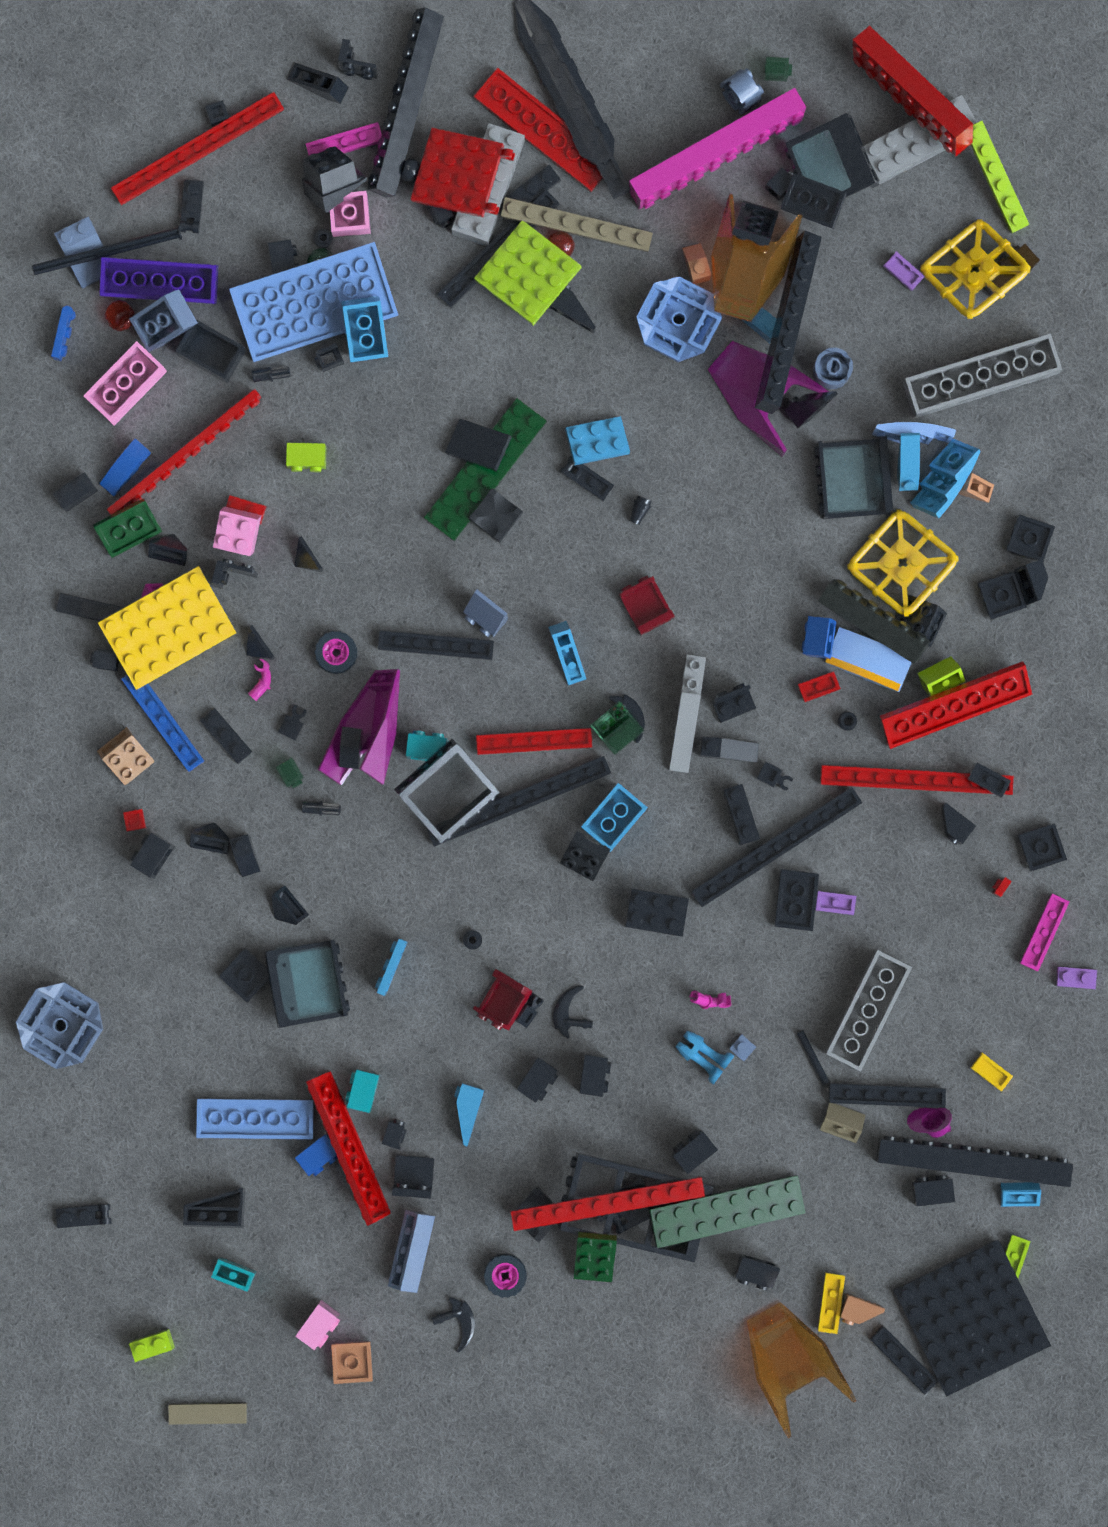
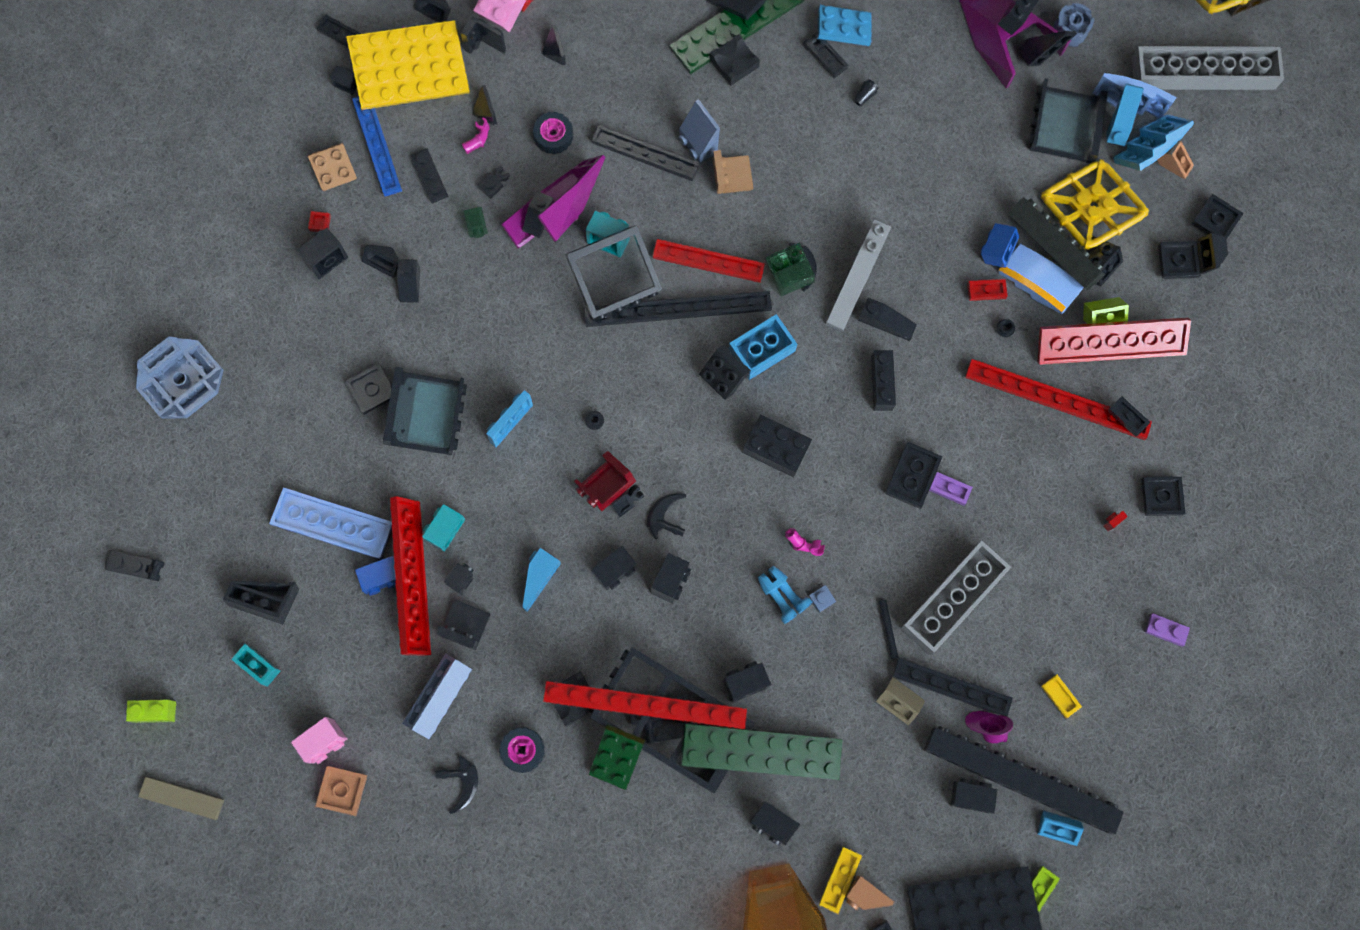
camera: 15 degrees right, 10 degrees down
(287, 908) = (431, 339): black slope -> none
(321, 808) = (493, 261): black axle -> none
(530, 640) = (732, 173): none -> medium nougat bracket
(567, 652) = (763, 193): dark azure slope -> none
(646, 605) = (847, 174): dark red panel -> none
(733, 703) = (904, 277): black bracket -> none
(771, 775) = (921, 354): black plate -> none
(776, 847) = (907, 421): black plate -> none
(956, 825) = (1085, 449): black slope -> none
(1044, 932) = (1146, 576): dark pink plate -> none

